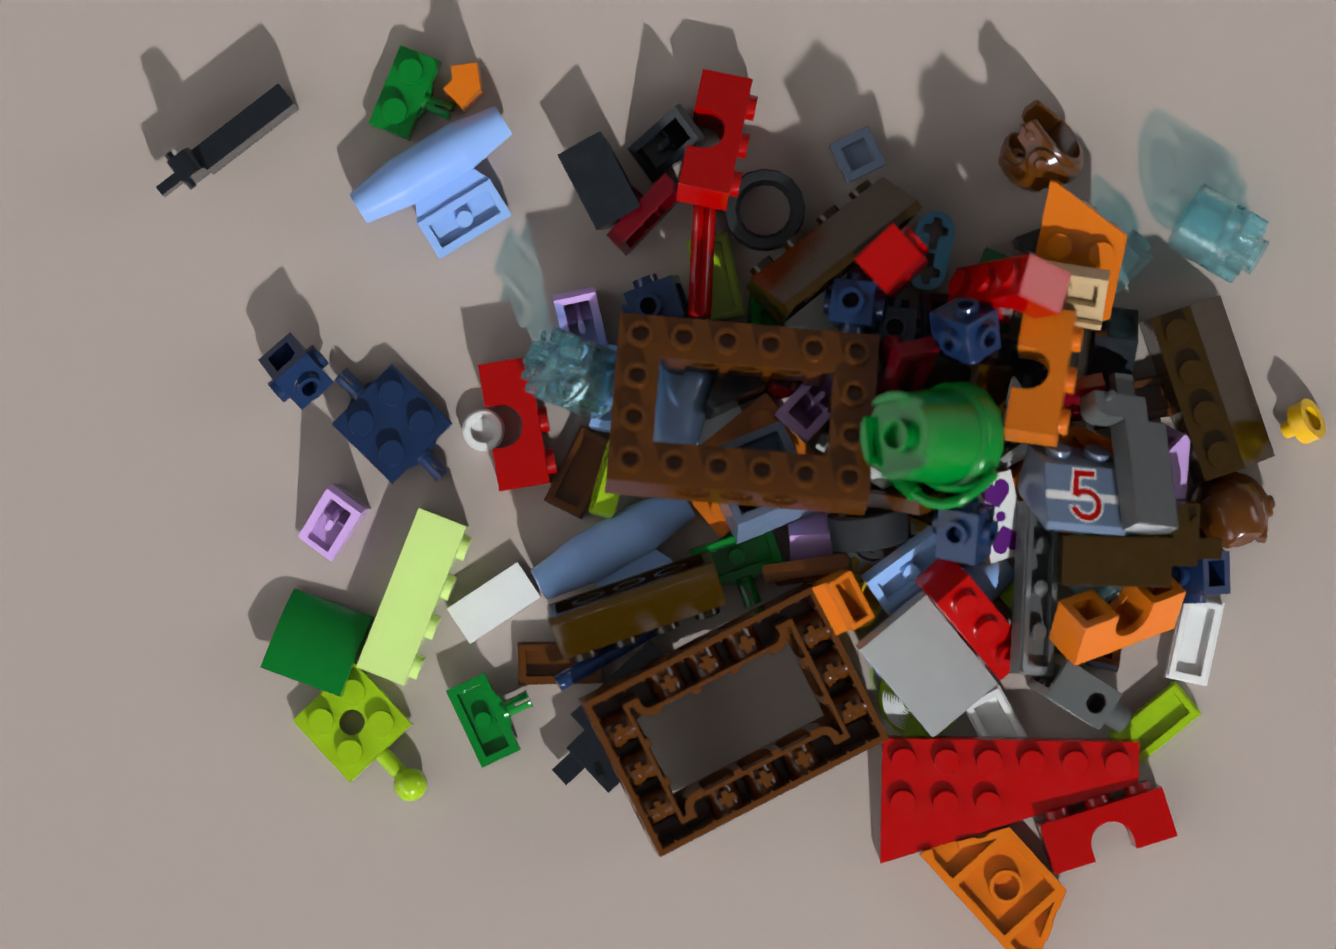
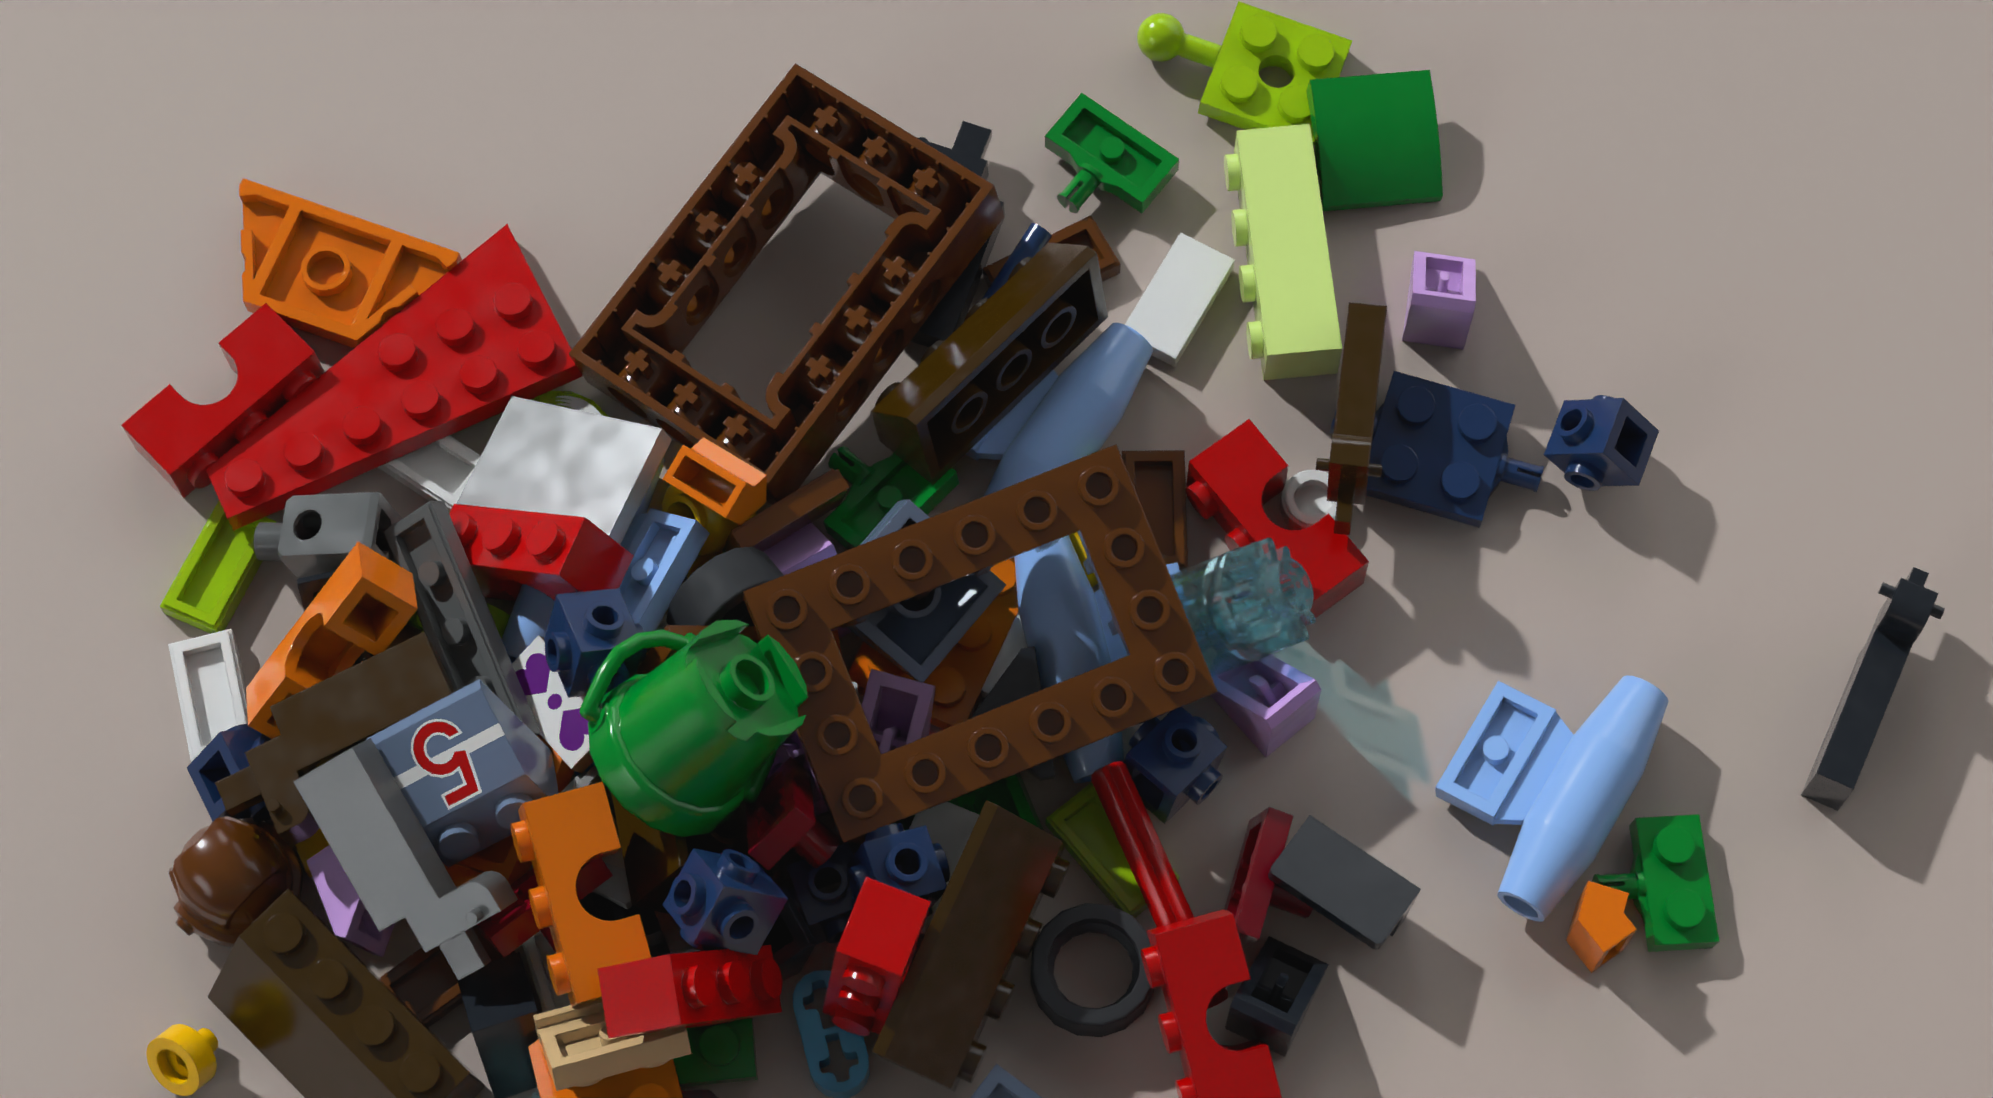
camera: 150 degrees right, 20 degrees down
(436, 457) = (1355, 413): none -> dark brown piece

